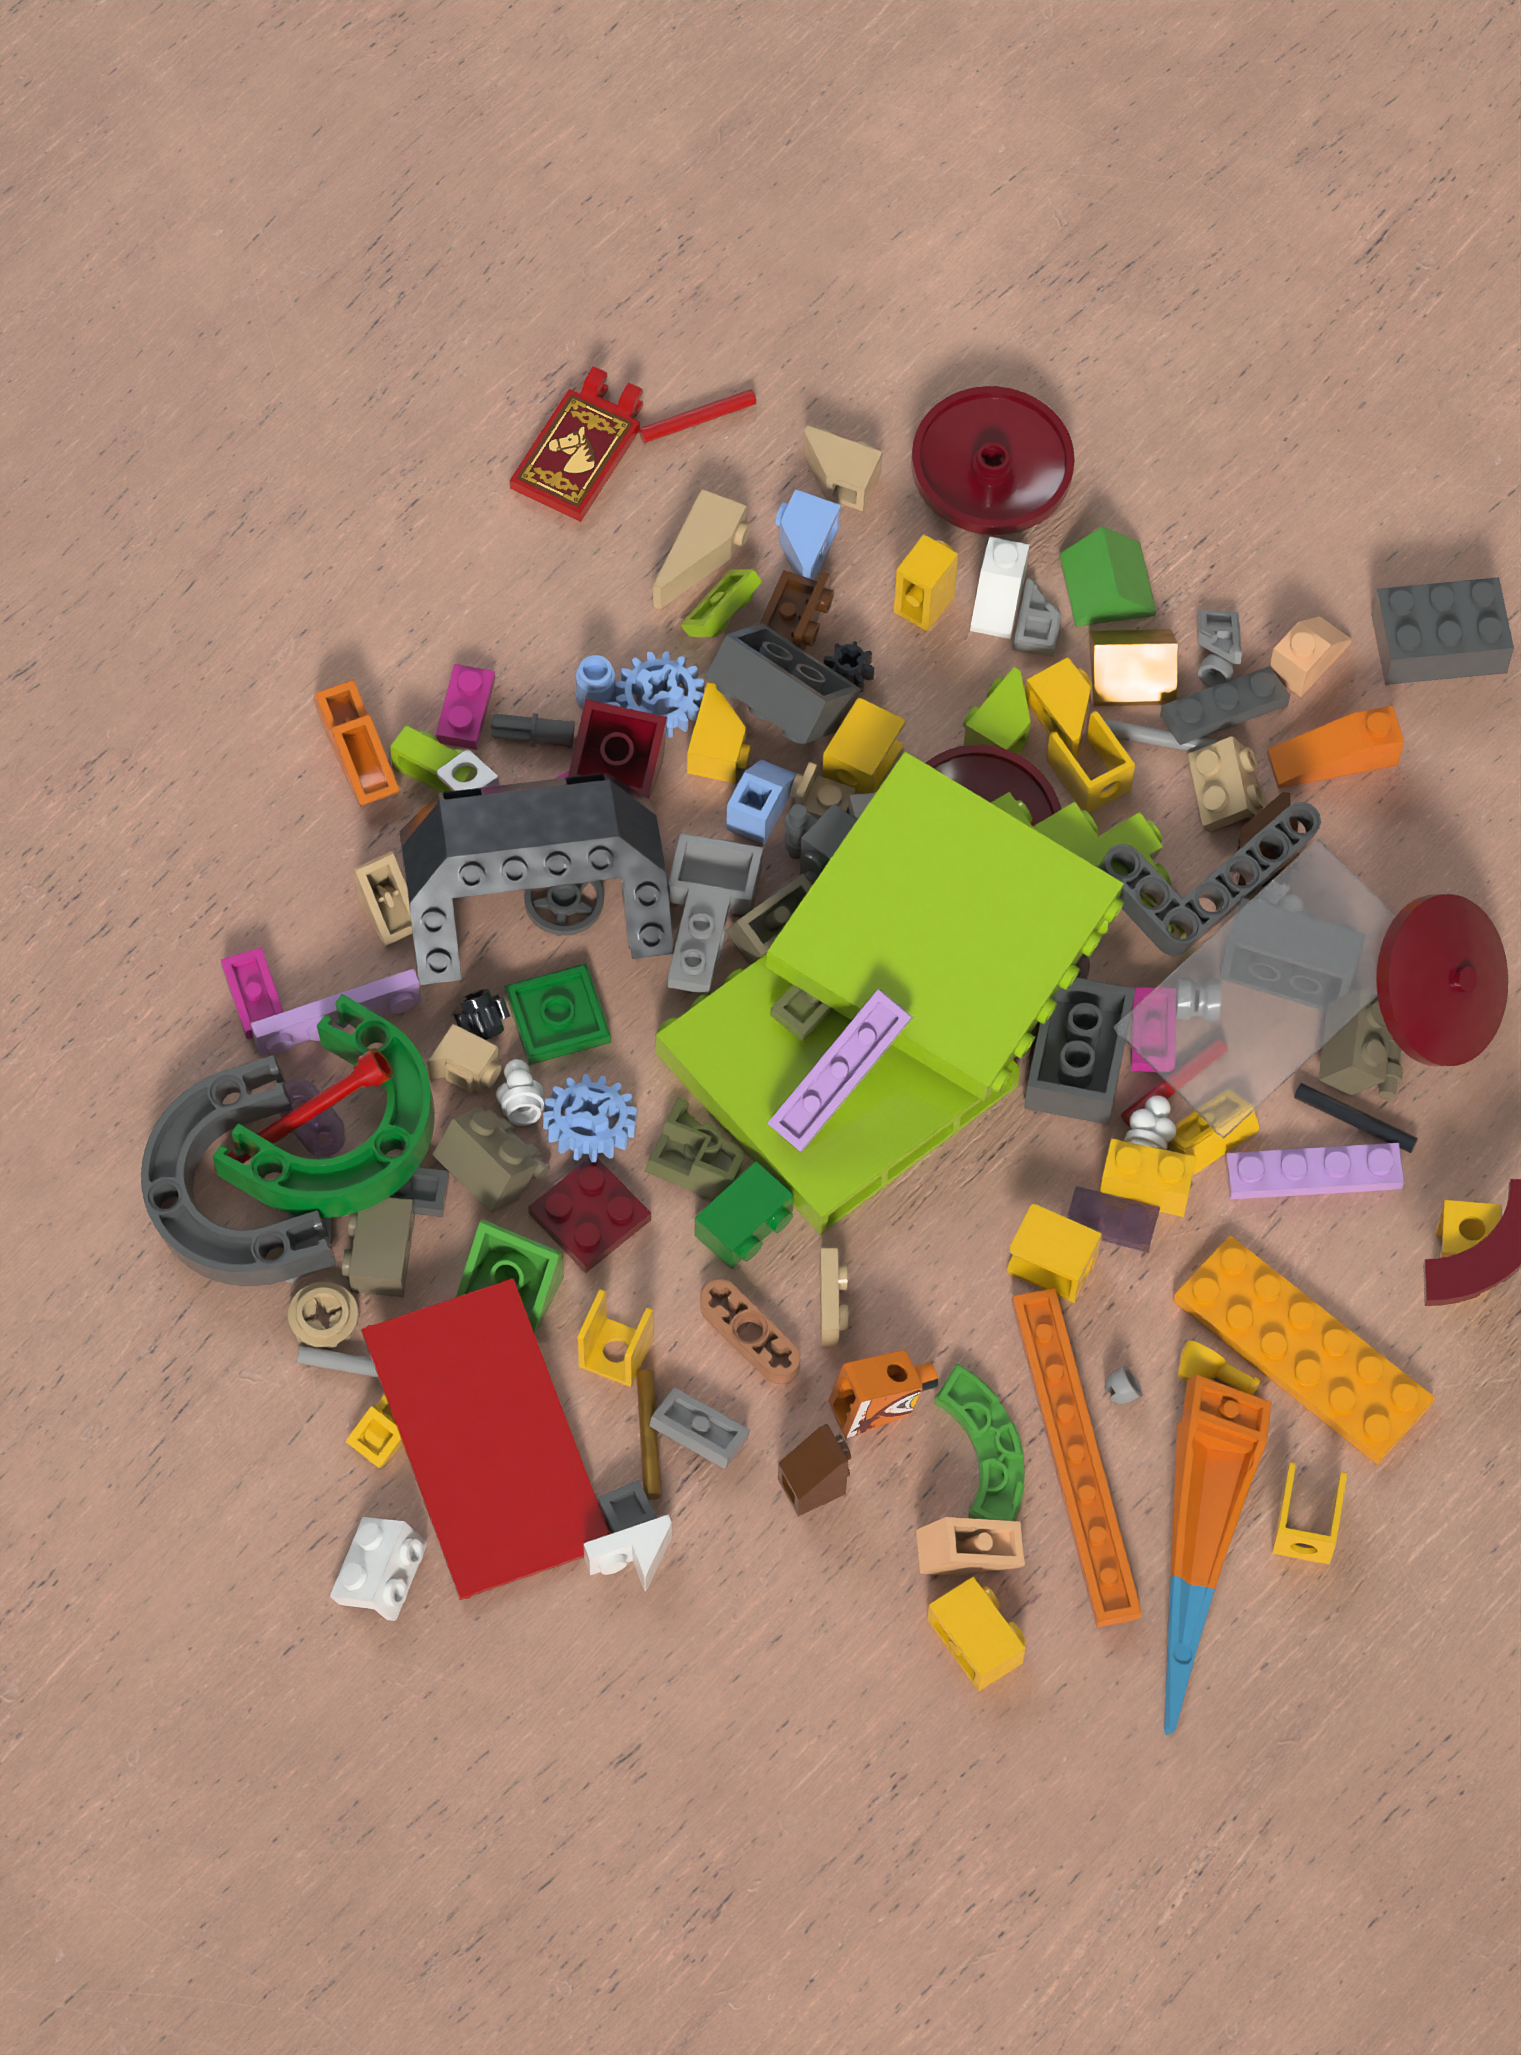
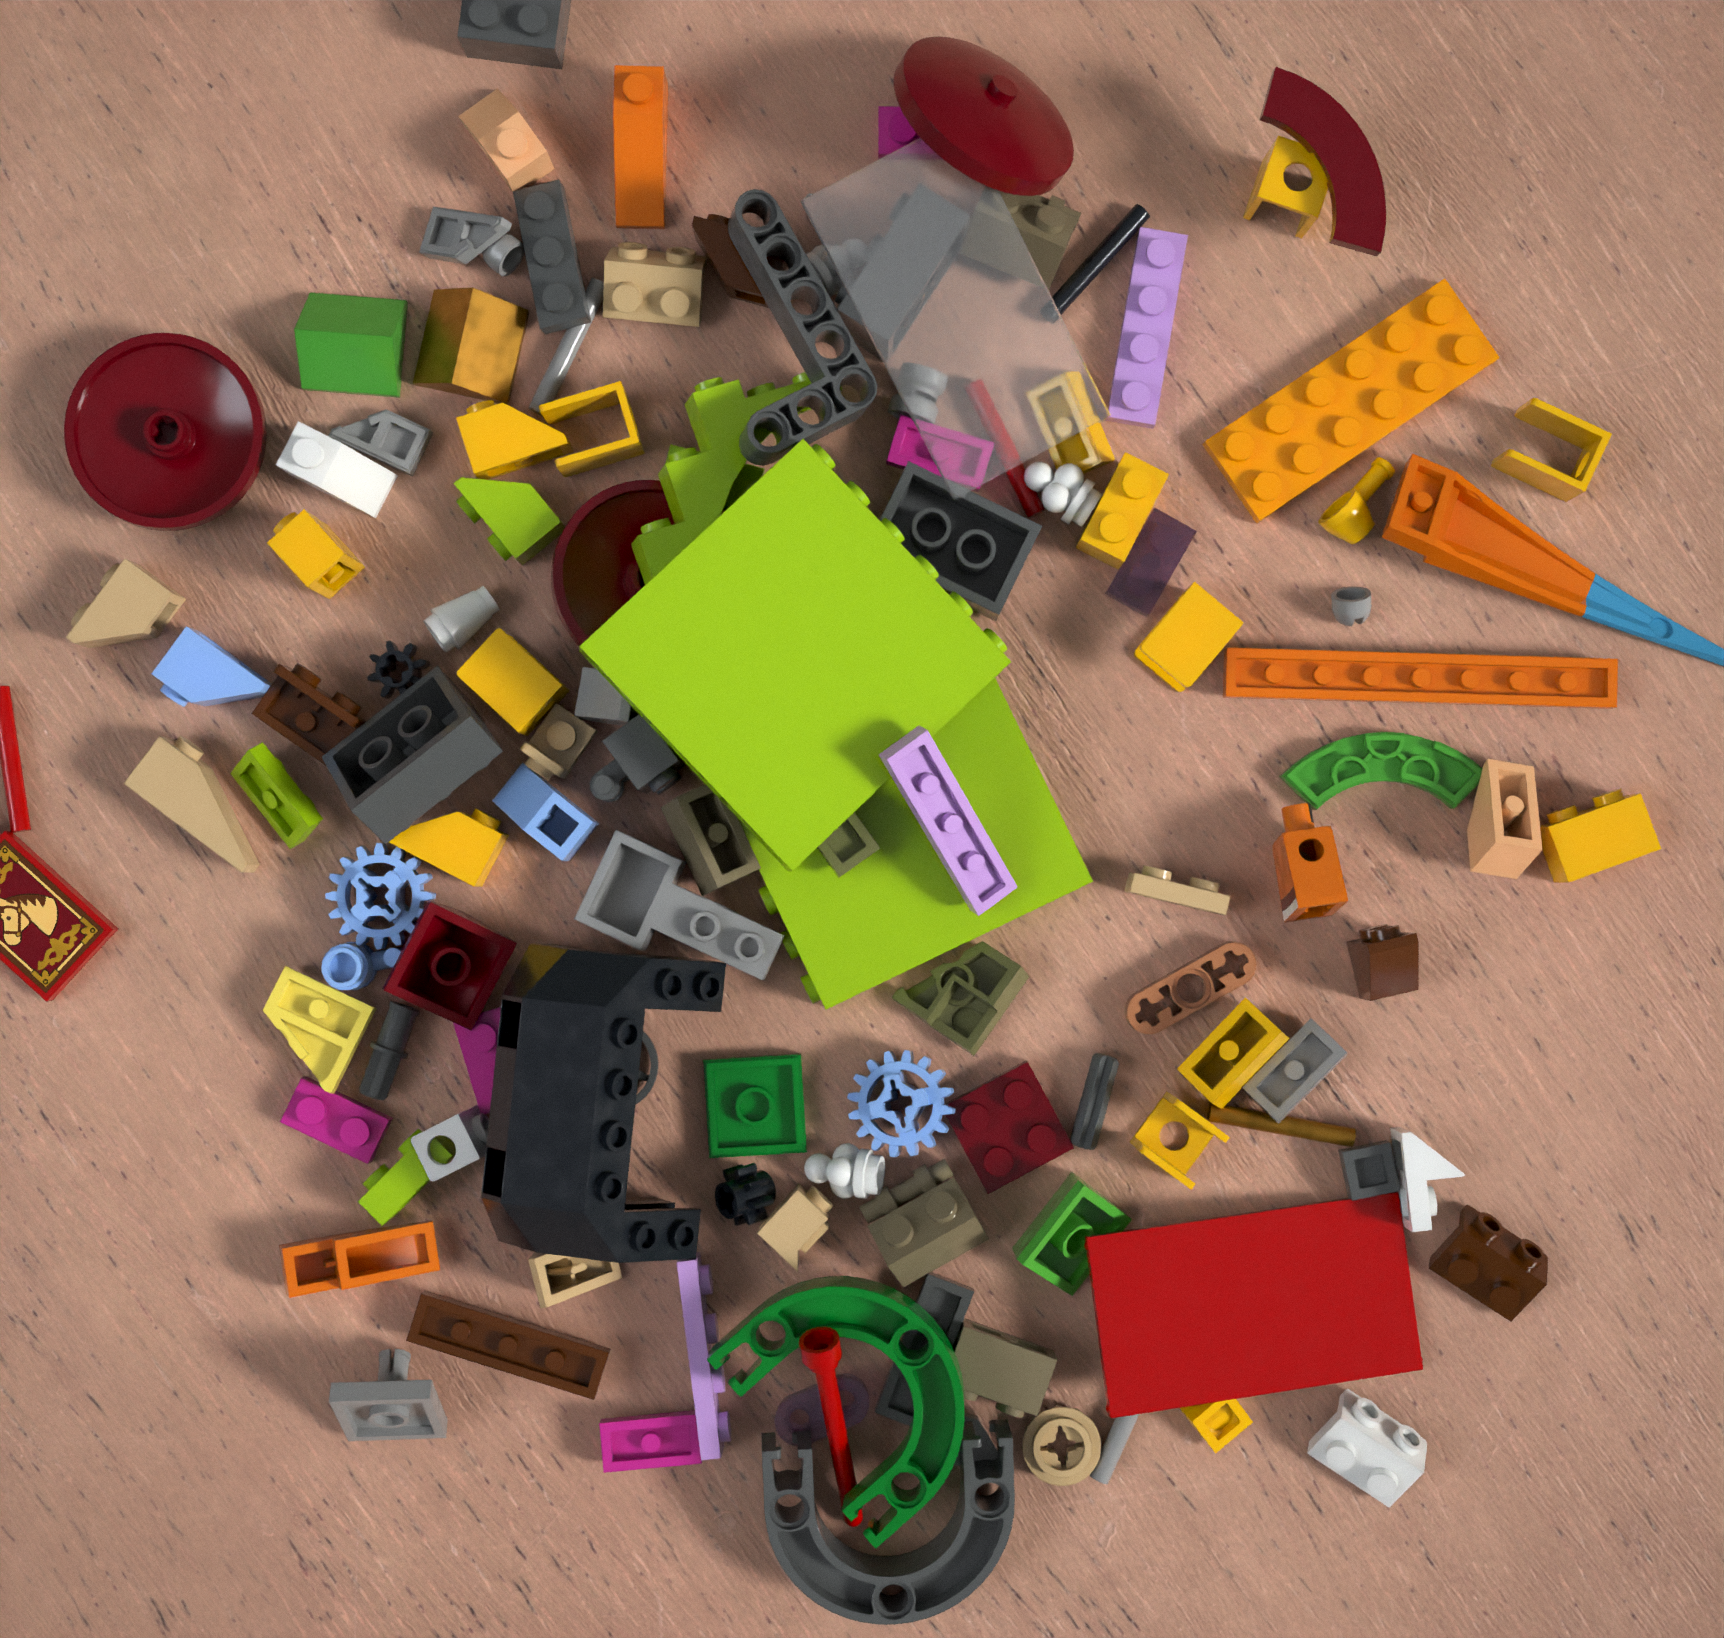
camera: 75 degrees left, 25 degrees up
(240, 785) = (391, 1406): none -> light grey tile
(310, 870) = (508, 1344): none -> reddish brown plate
(541, 674) = (318, 1023): none -> light yellow wing
(570, 1632) = (1491, 1263): none -> reddish brown bracket
(630, 1276) = (1094, 1101): none -> dark grey axle
(702, 1365) = (1232, 1053): none -> yellow brick
(744, 1216) = (1059, 961): green brick -> none
(904, 701) = (460, 618): none -> white cone

